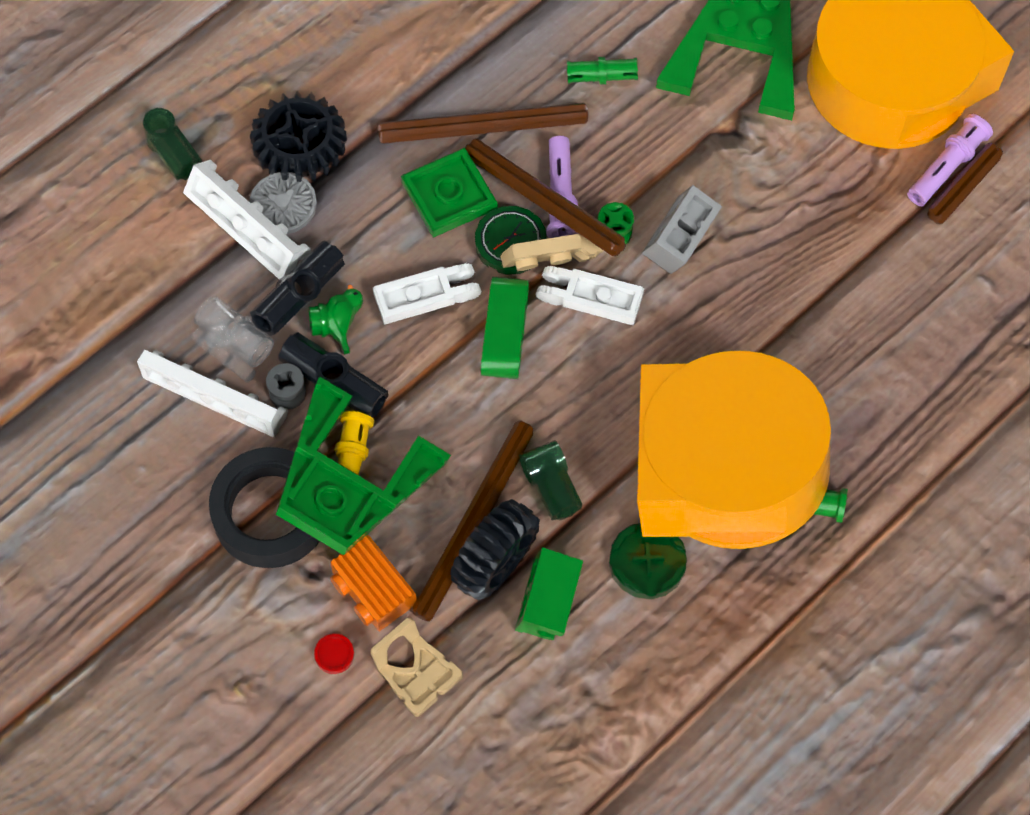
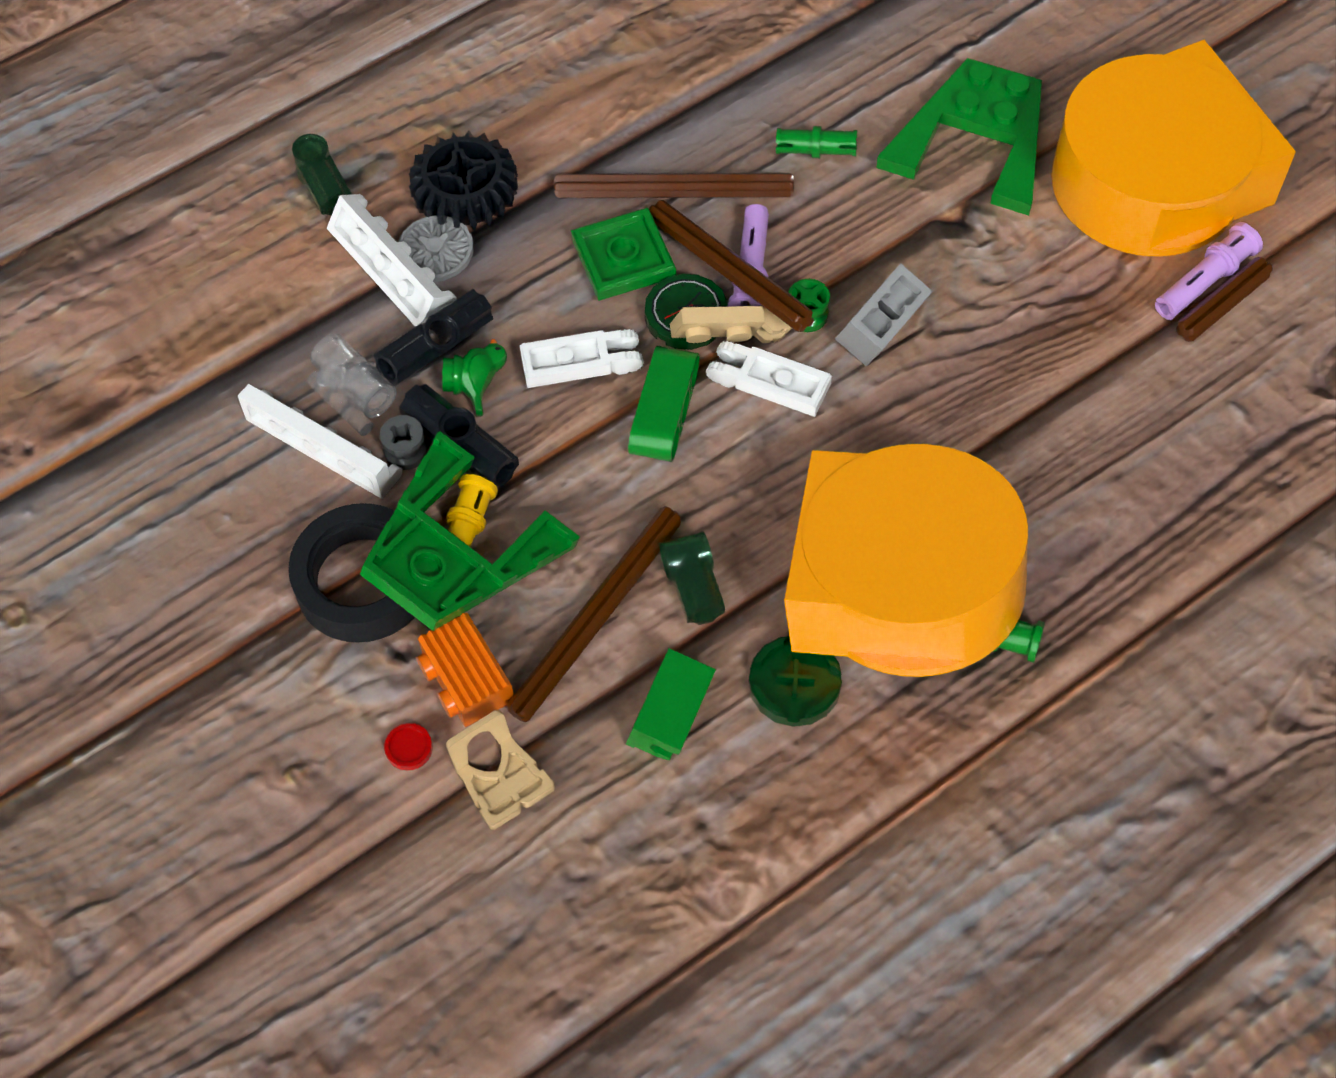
camera: 10 degrees right, 5 degrees down
(494, 549) = (611, 644): black gear -> none

